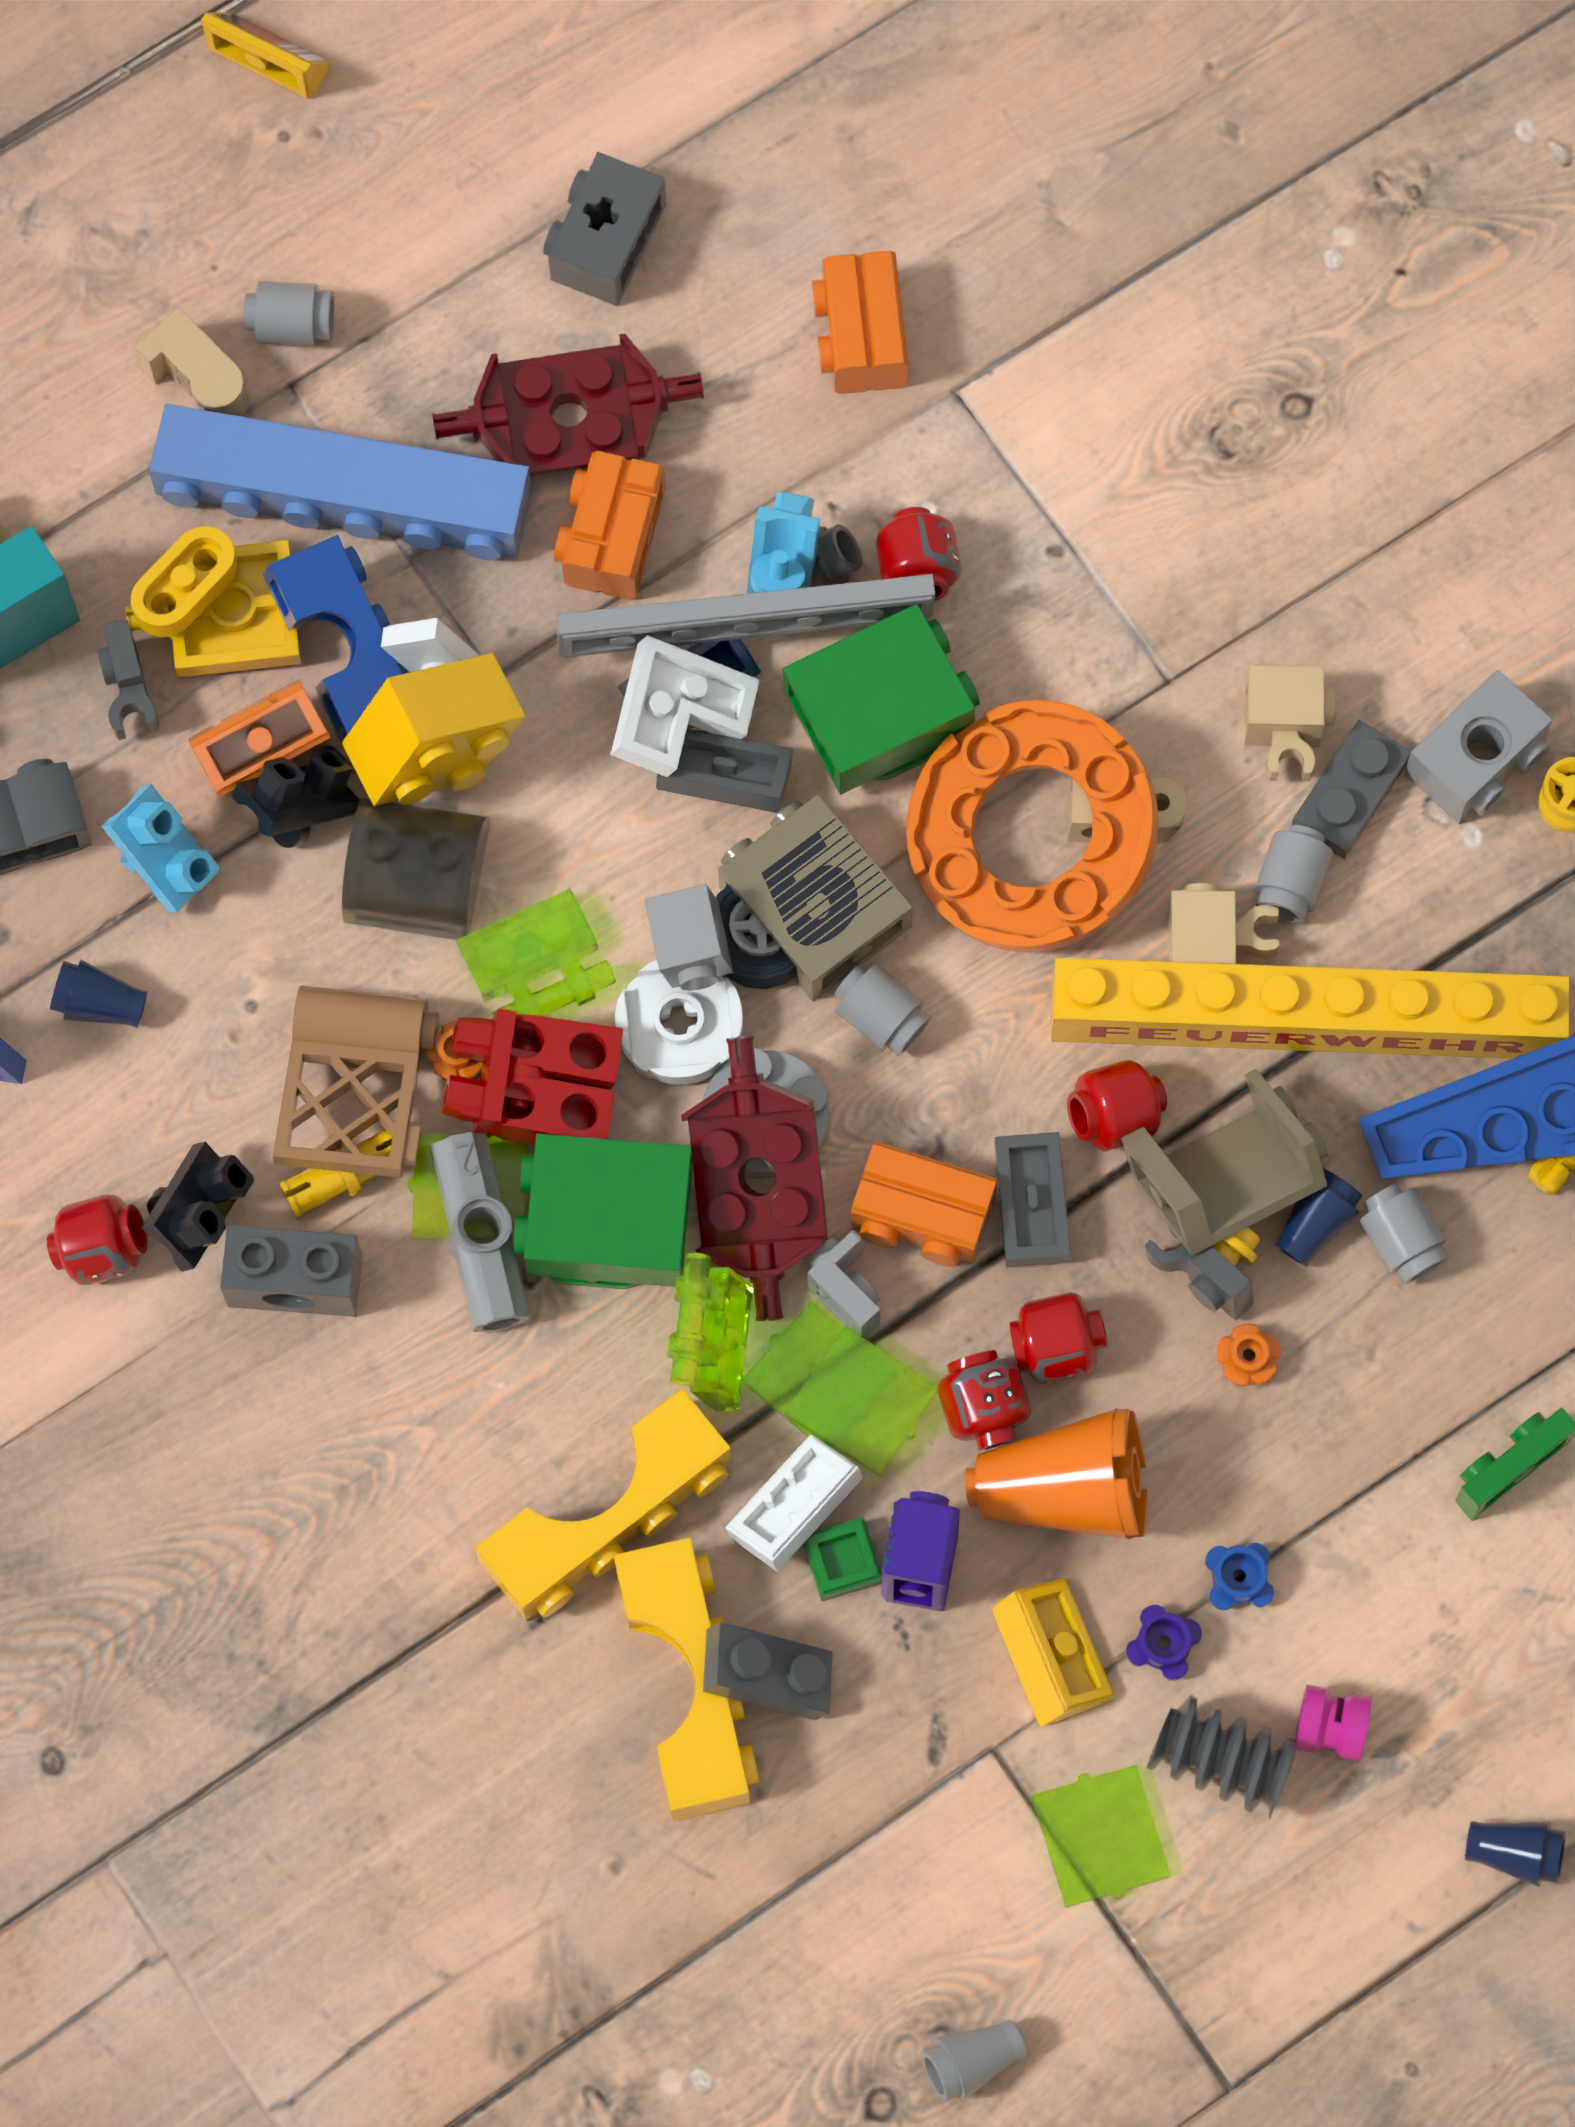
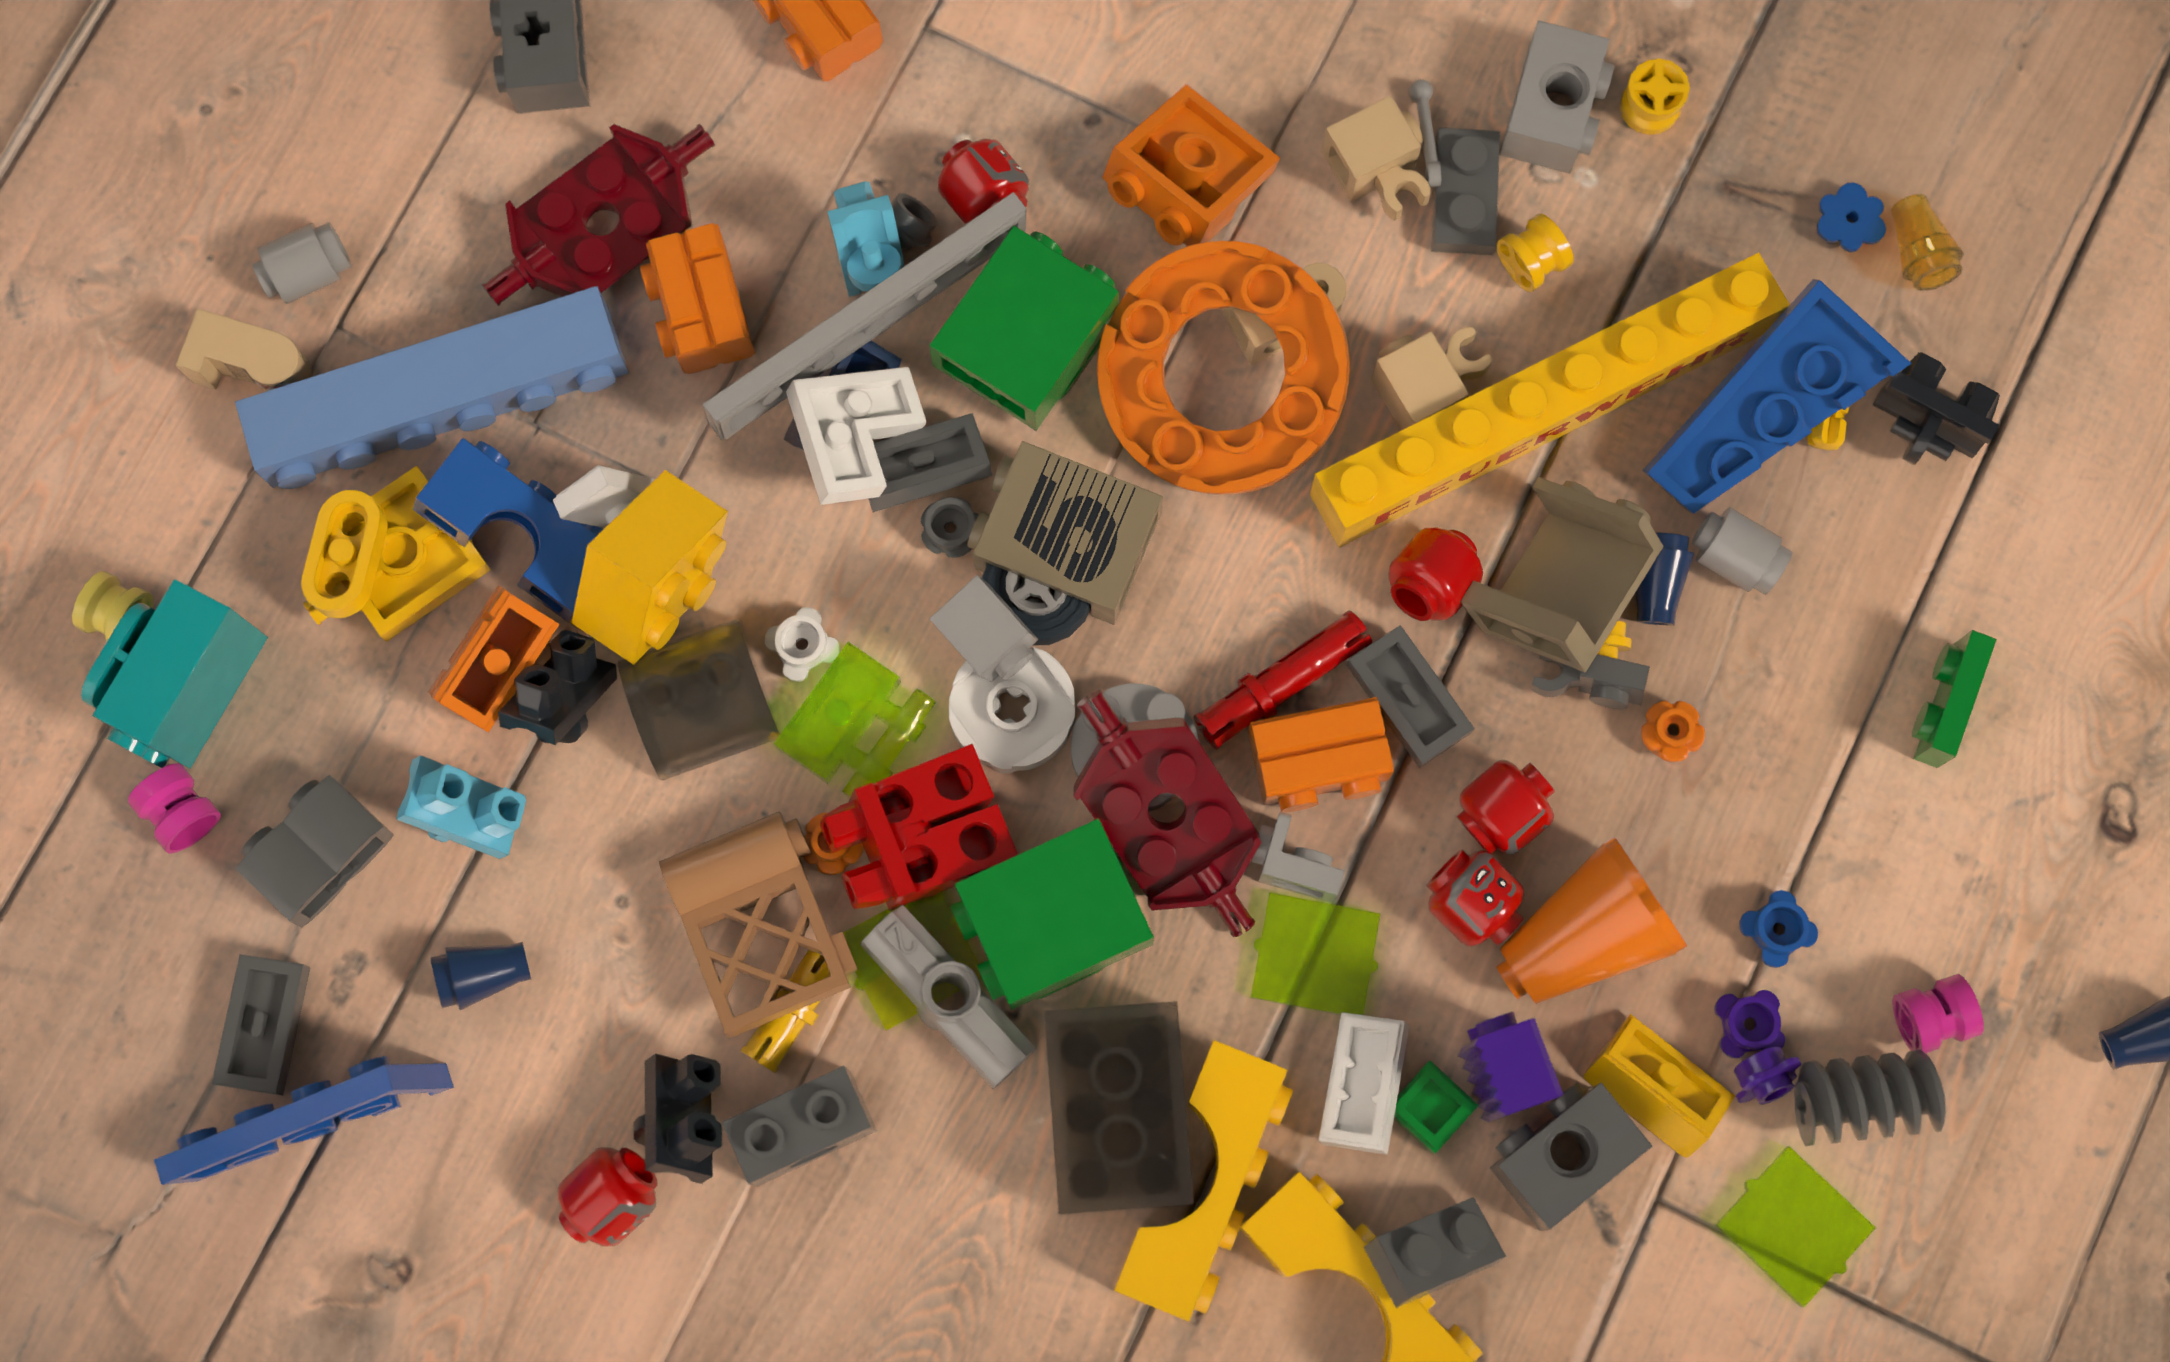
camera: 30 degrees left, 5 degrees up
(122, 666) = (331, 660): dark grey plate -> none
(264, 53) = (146, 44): yellow slope -> none
(528, 852) = (806, 626): none -> white plate
(567, 1402) = (1118, 1108): none -> clear smoke brick
(710, 1332) = (1207, 974): clear neon green plate -> none
(713, 823) = (935, 519): none -> dark grey plate
(862, 1401) = (1368, 957): clear neon green piece -> none
(881, 1008) = (1182, 600): light grey brick -> none
(905, 1686) = (1607, 1146): none -> dark grey brick
(928, 1124) = (1261, 694): none -> red pin
(1109, 636) = (1188, 168): none -> orange plate
(1148, 1690) = (1766, 1076): none -> dark purple plate
(1294, 872) = (1464, 288): light grey brick -> none
(1364, 681) = (1421, 93): none -> light grey hinge
(1377, 874) = (1535, 252): none -> yellow wheel

